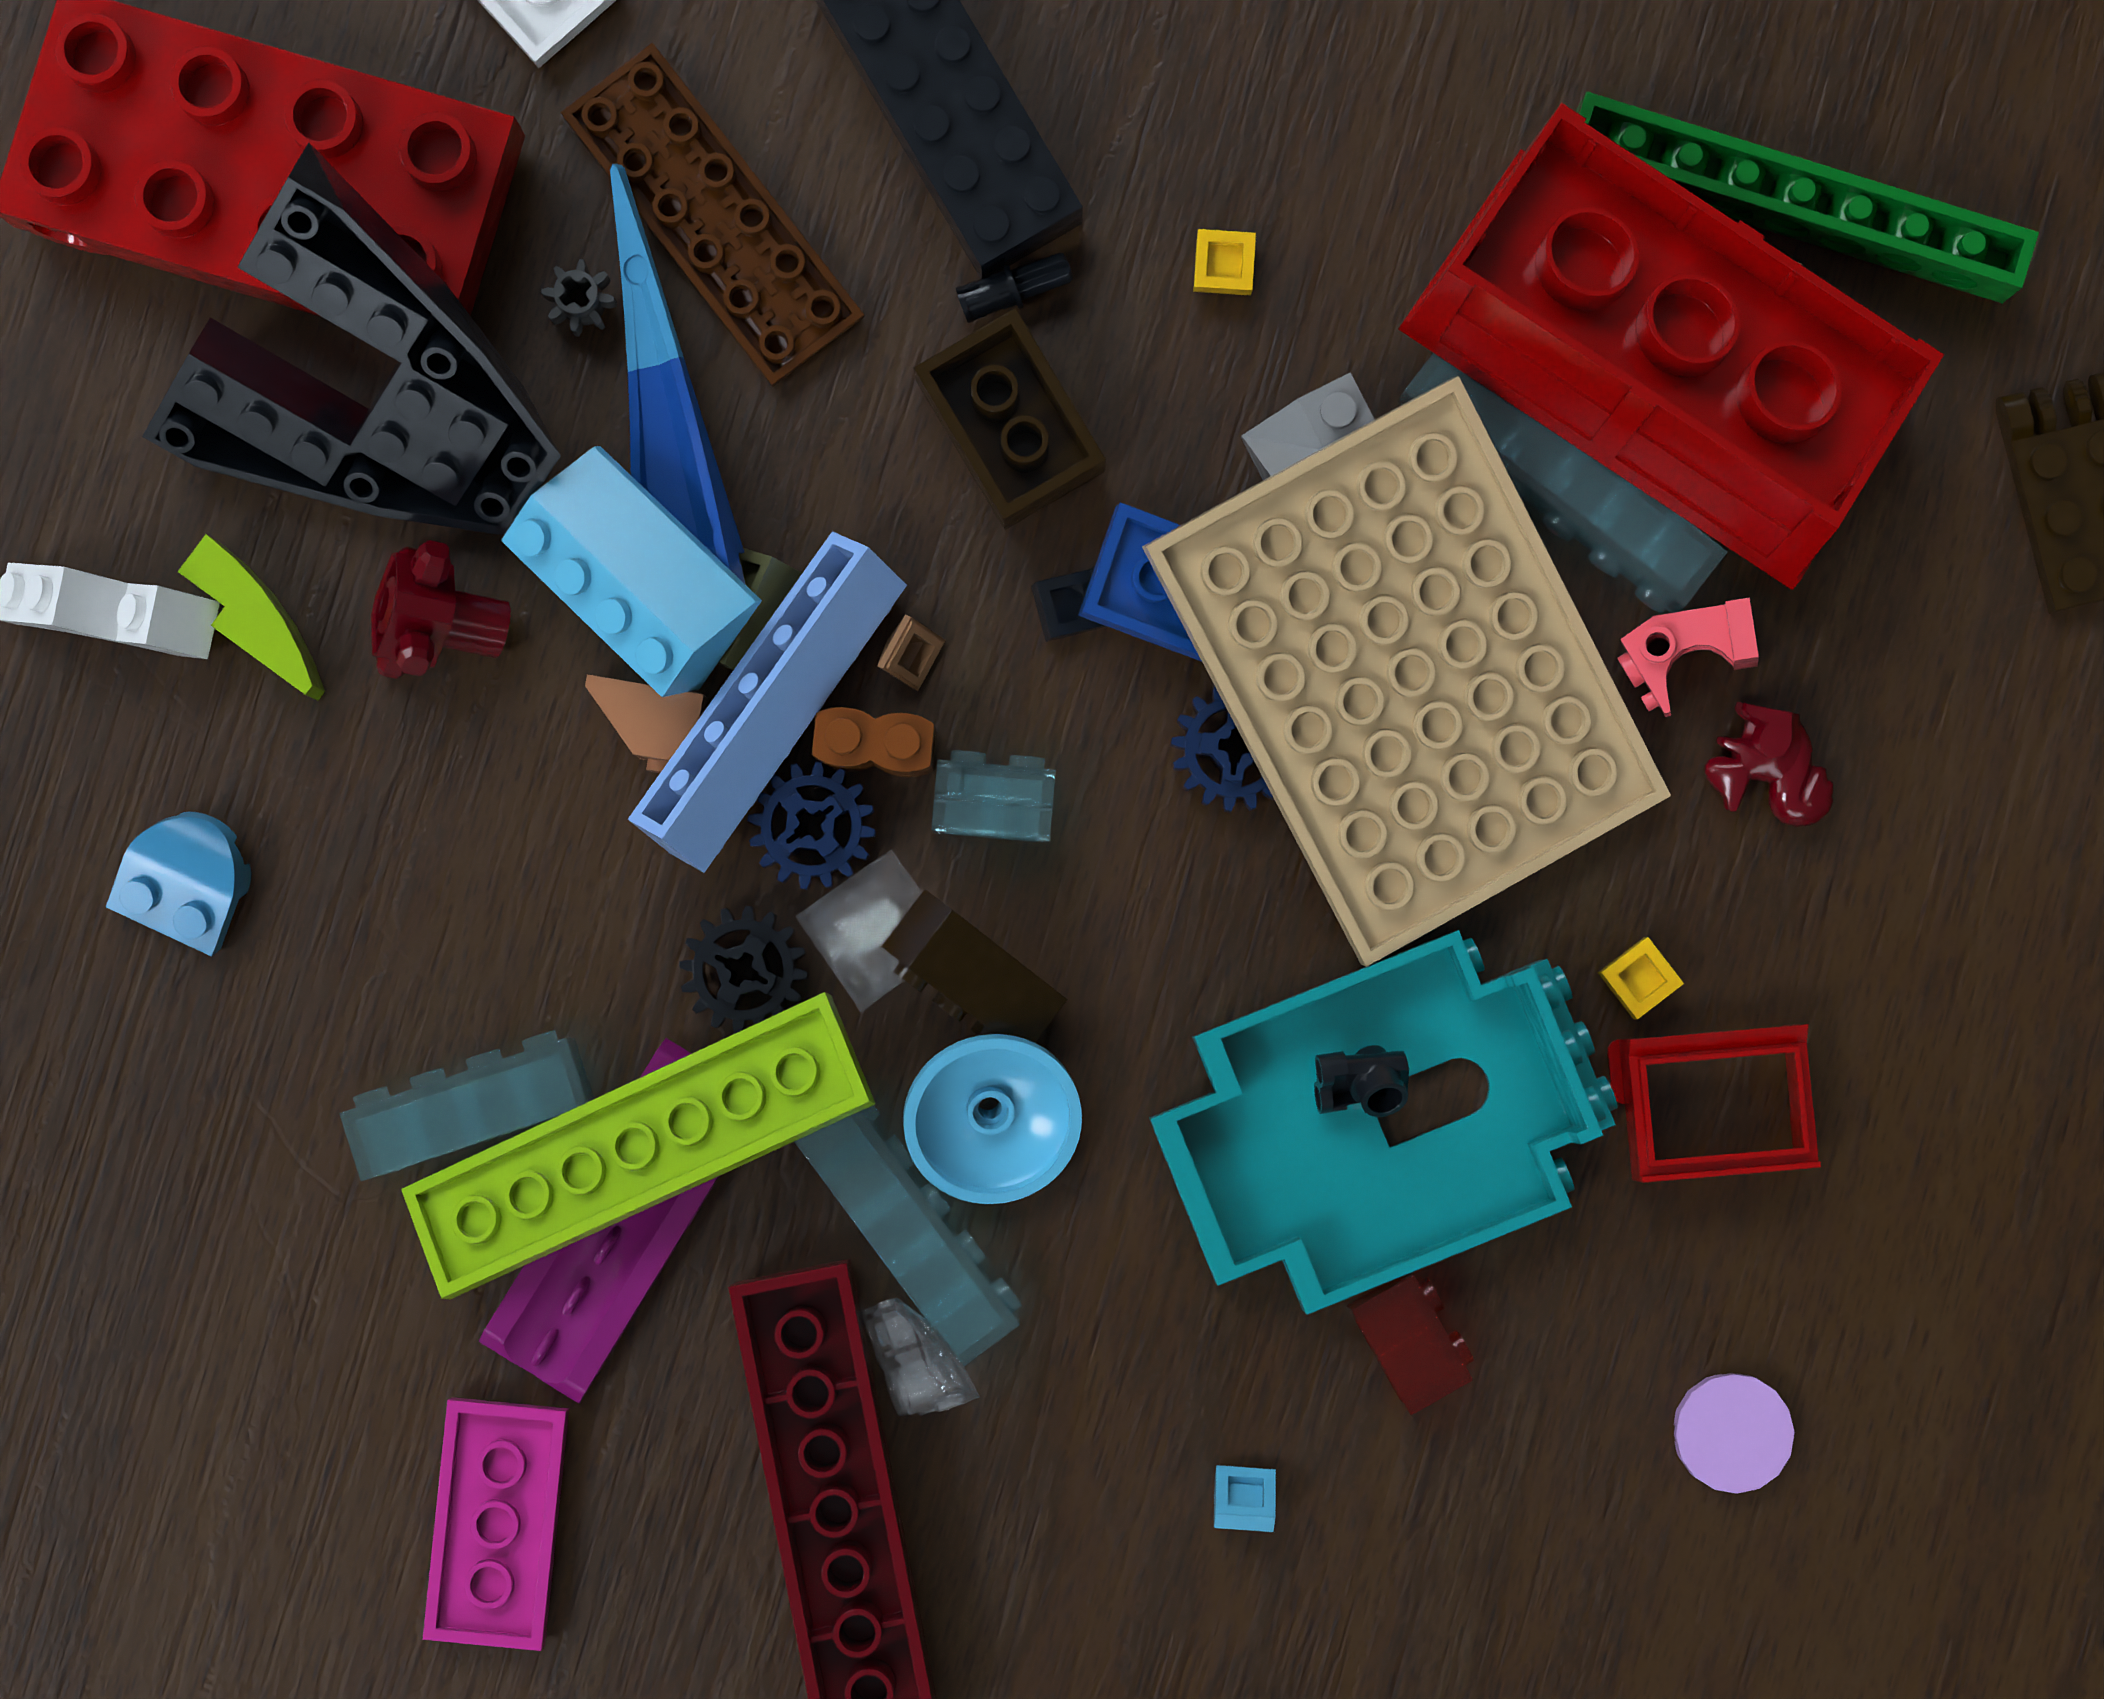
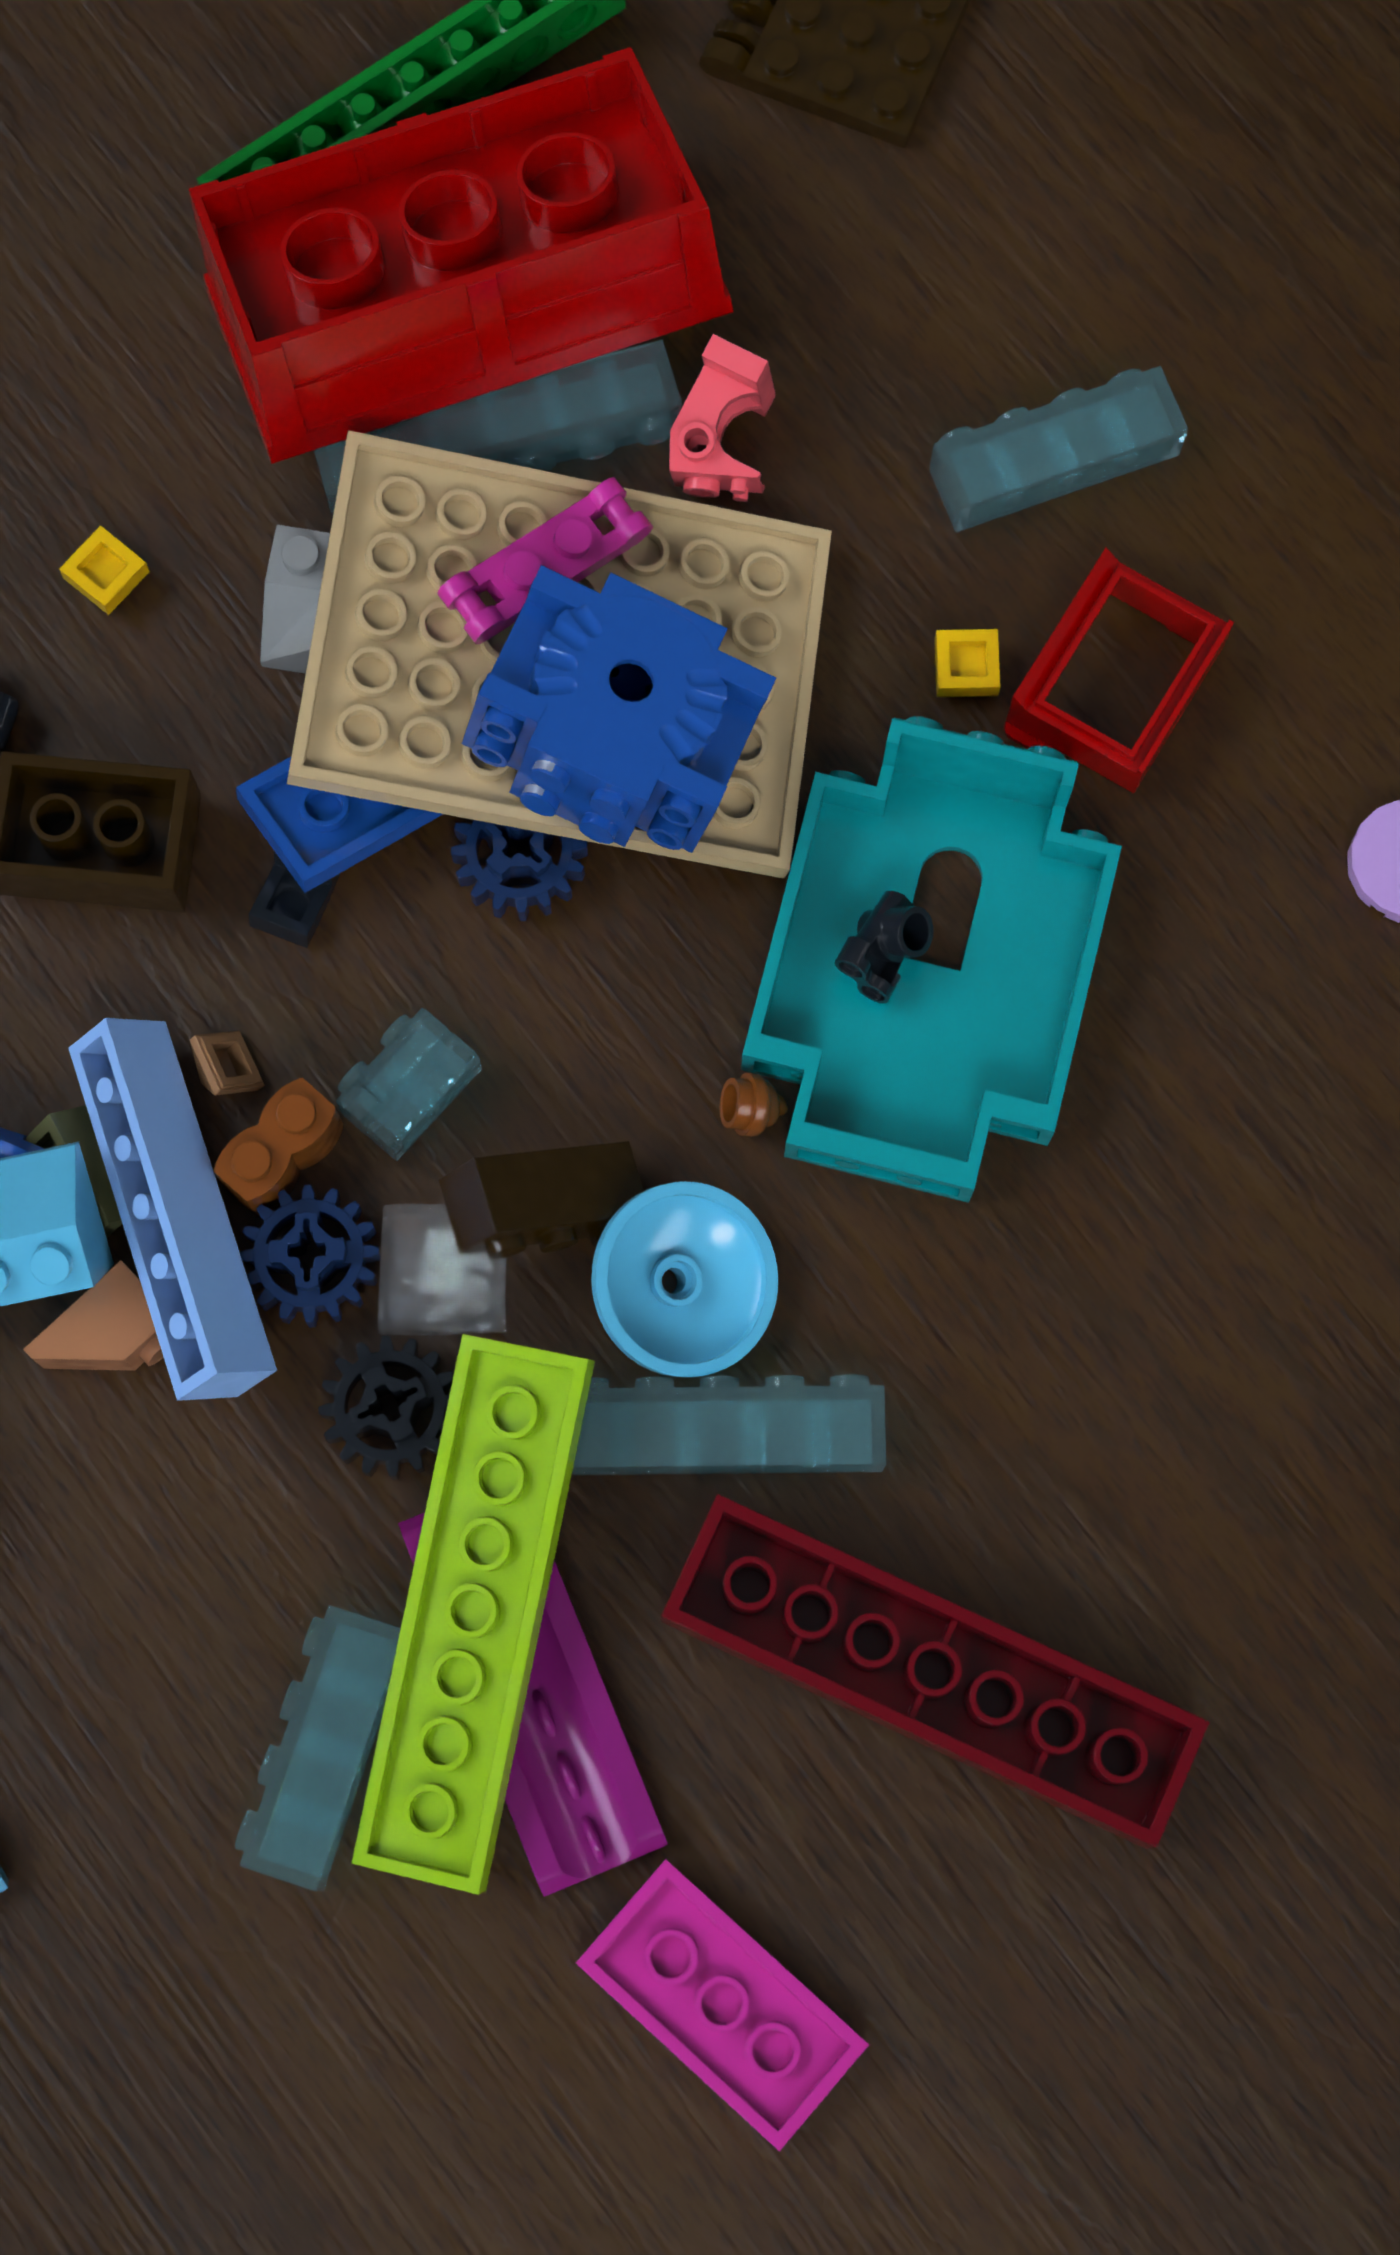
camera: 55 degrees left, 10 degrees down
(917, 1361) = (849, 1501): clear slope -> none
(1166, 1066) = (750, 1104): none -> dark orange plate
(1245, 1498) = (1179, 1306): medium azure plate -> none
(1327, 745) = (599, 742): none -> blue piece
(1411, 1341) = (1142, 1066): clear red brick -> none
(1467, 605) = (564, 544): none -> dark pink plate
(1776, 752) = (858, 425): dark red animal -> none
(1874, 922) = (1057, 447): none -> clear light blue brick

